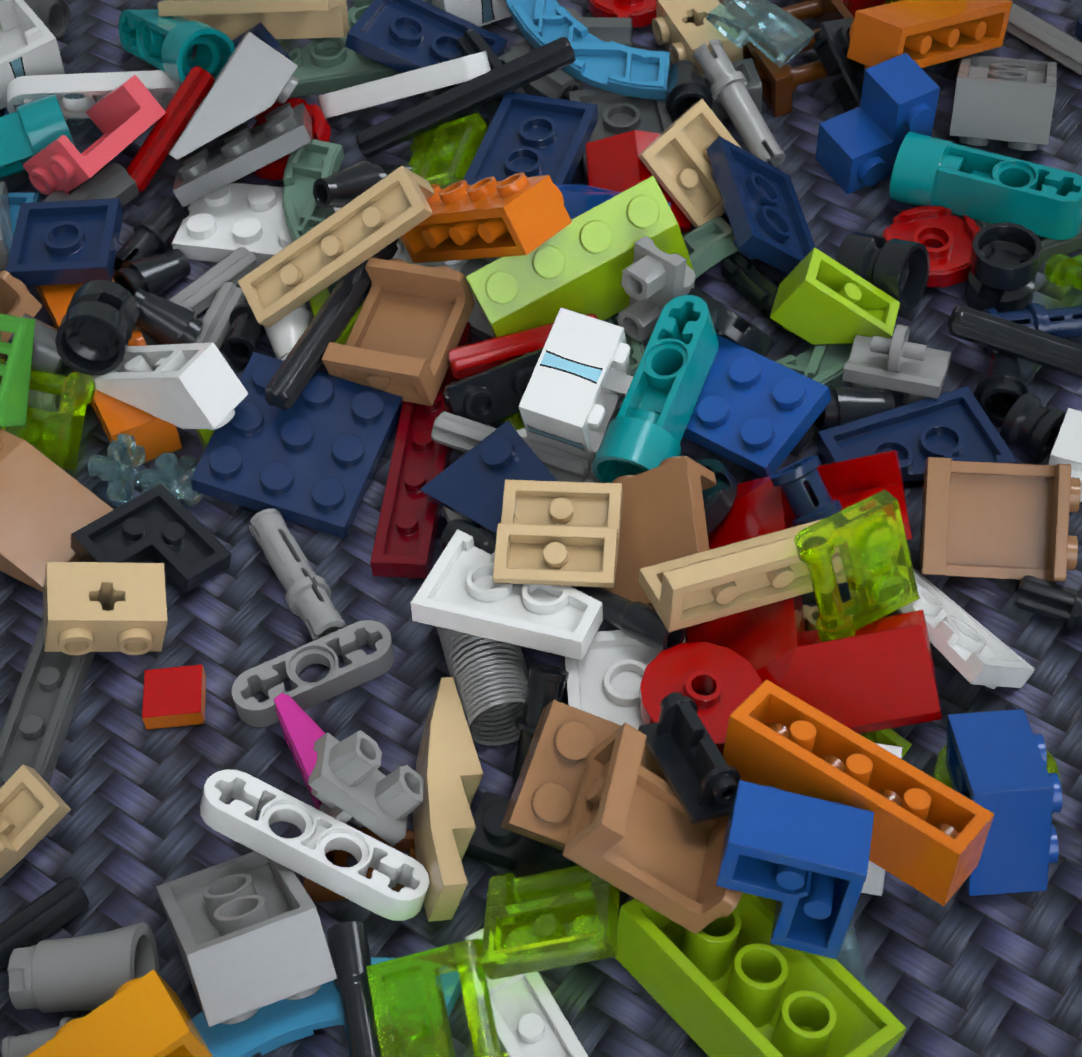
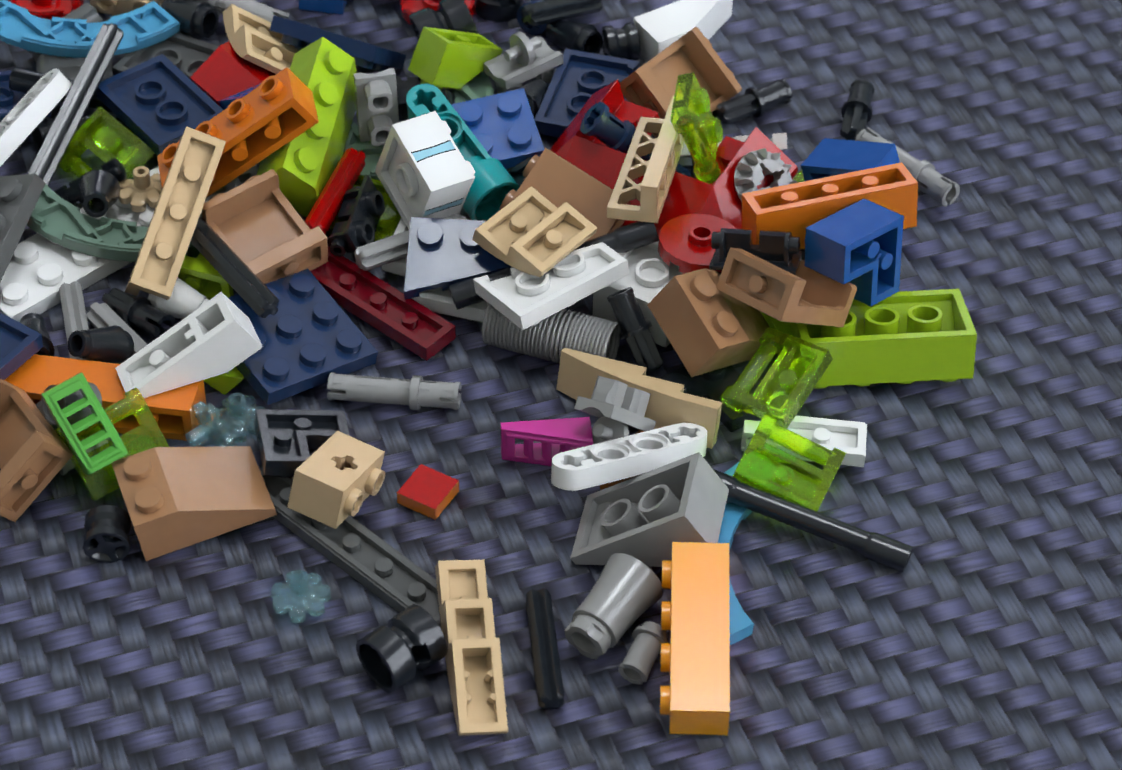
camera: 60 degrees left, 5 degrees down
(97, 327) = (107, 357): black wheel -> none
(324, 651) = (482, 434): light grey beam -> none
(888, 677) = (755, 166): none -> light grey gear

